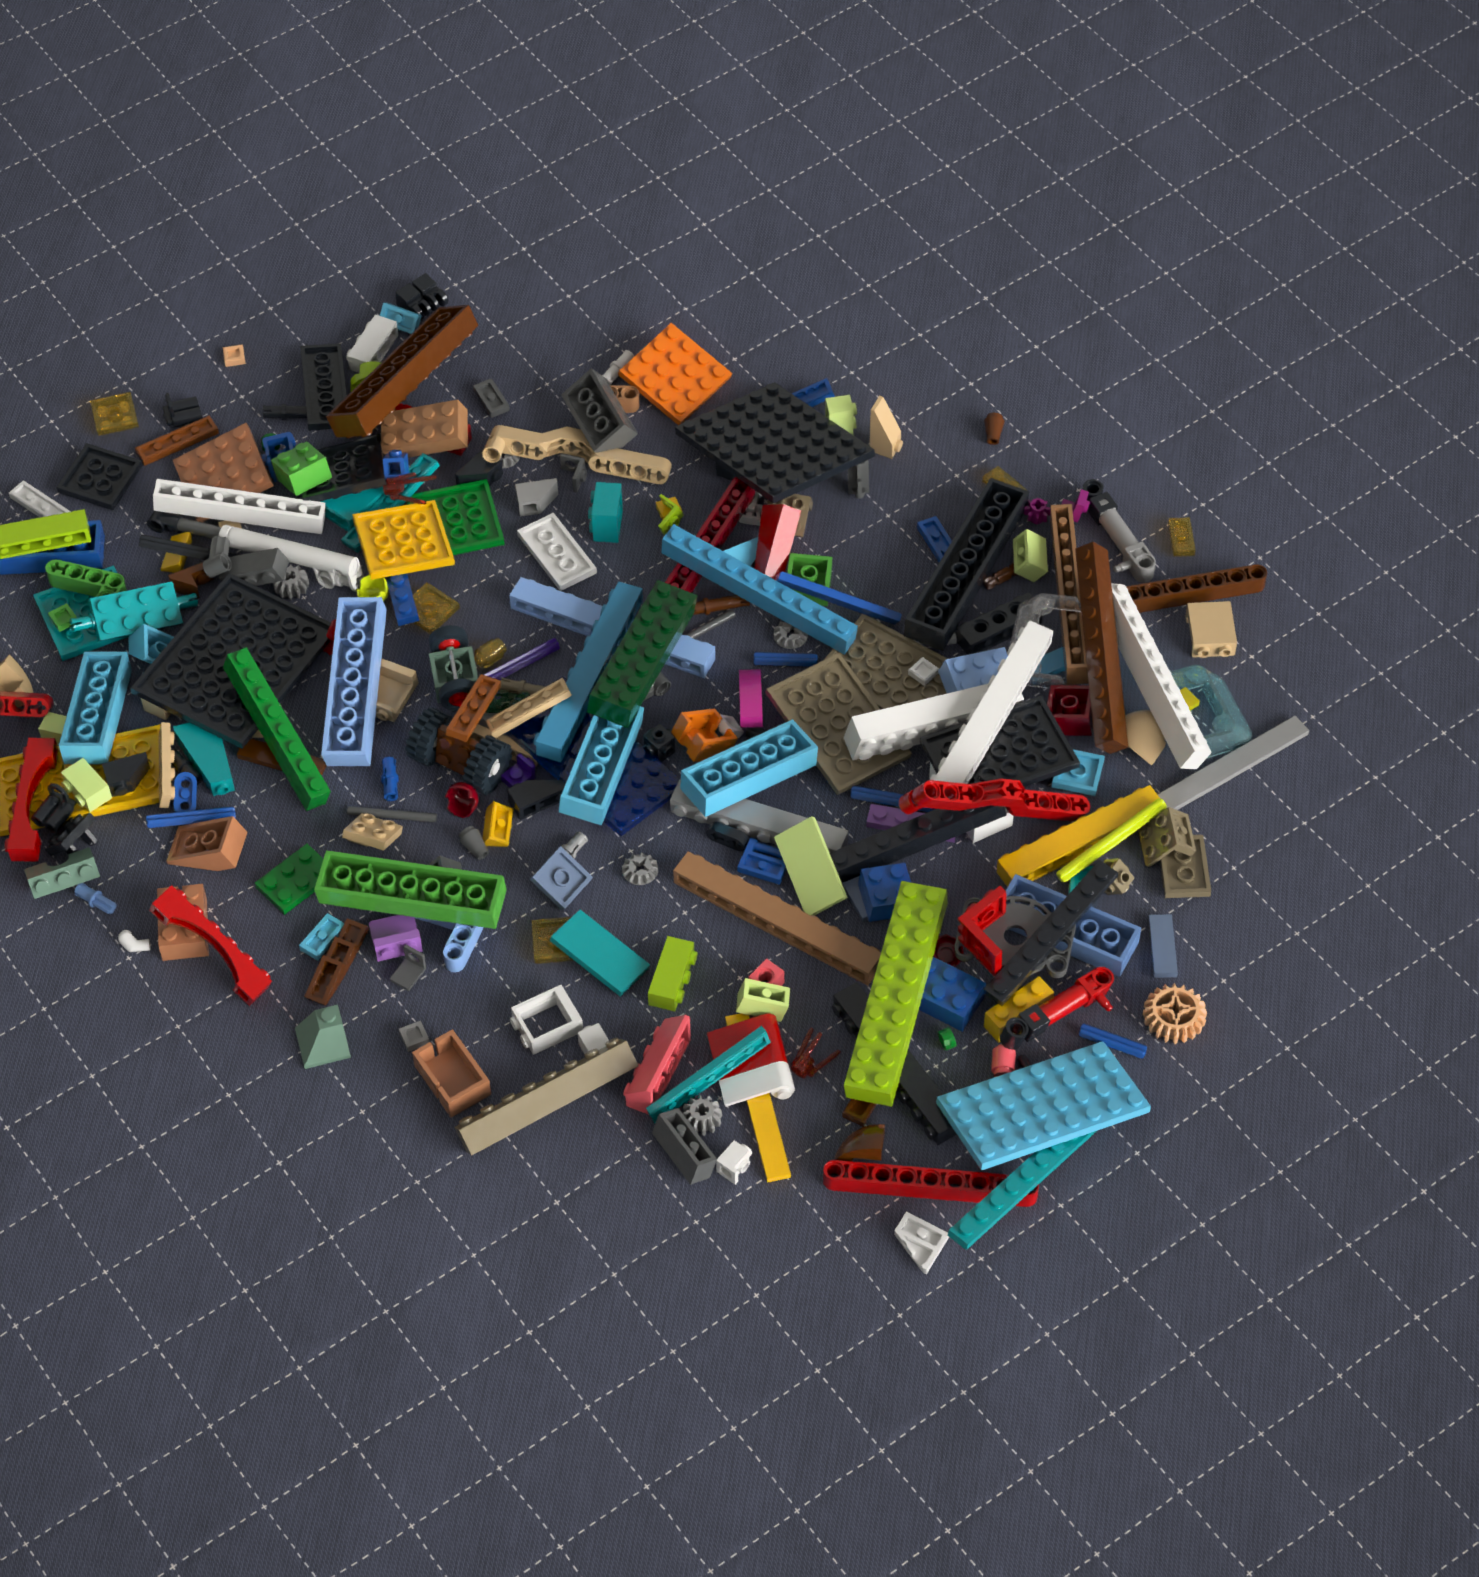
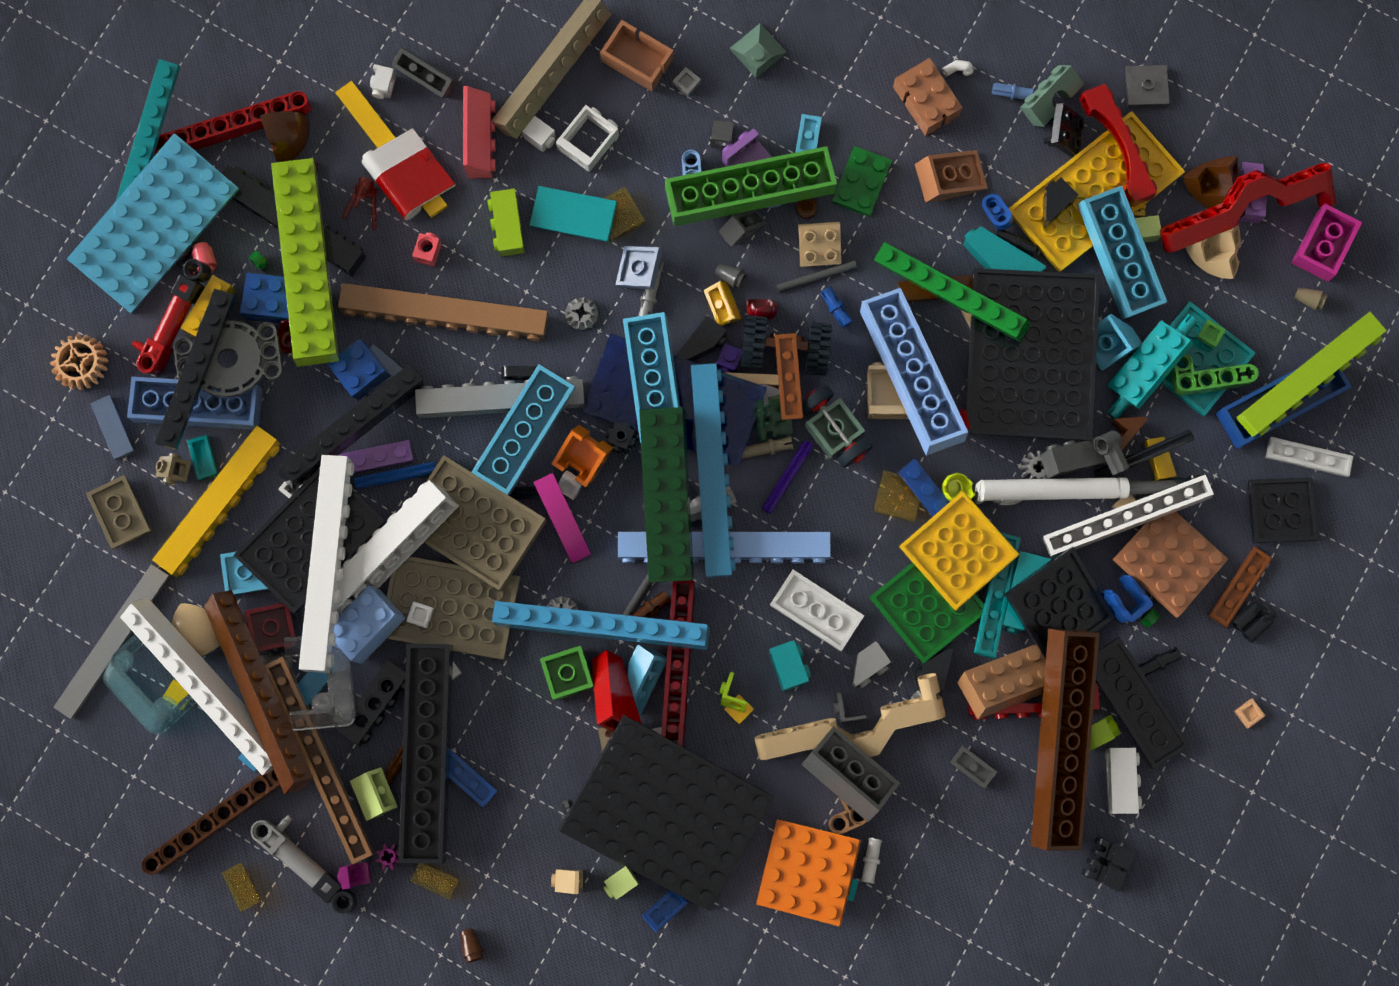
camera: 155 degrees right, 25 degrees up
(54, 809) = (1093, 144): black piece -> none
(86, 785) = (1082, 176): yellowish green brick -> none
(114, 413) = (1316, 588): clear yellow plate -> none
(166, 773) = (1022, 218): tan plate -> none
(175, 909) = (927, 74): red arch -> none
(188, 817) = (979, 194): blue axle -> none
(301, 468) = (1093, 578): bright green brick -> none
(336, 962) = (784, 117): reddish brown slope -> none
(395, 464) = (1007, 620): blue brick -> none
(396, 486) = (996, 602): clear red plant -> none
(406, 320) = (1115, 827): medium azure plate -> none
(490, 652) = (818, 470): clear yellow brick -> none
(528, 708) = (742, 400): tan tile -> none
(703, 1107) = (431, 104): light grey gear -> none
(710, 1073) = (429, 139): teal tile -> none
(760, 865) = (478, 357): blue plate -> none
(762, 998) = (420, 220): yellowish green brick -> none
(785, 659) = (553, 583): blue axle -> none
(810, 867) = (432, 362): yellowish green tile -> none
(838, 598) = (527, 652): blue tile -> none
(920, 1240) = (211, 80): white wing -> none
(978, 918) = (256, 344): red bracket -> none
(995, 792) = (279, 462): red beam -> none
(1111, 840) = (185, 503): neon yellow axle -> none
(1113, 1040) = (143, 318): blue axle -> none
(1166, 833) = (139, 528): dark tan bracket -> none
(1211, 629) = (175, 783): tan panel -> none

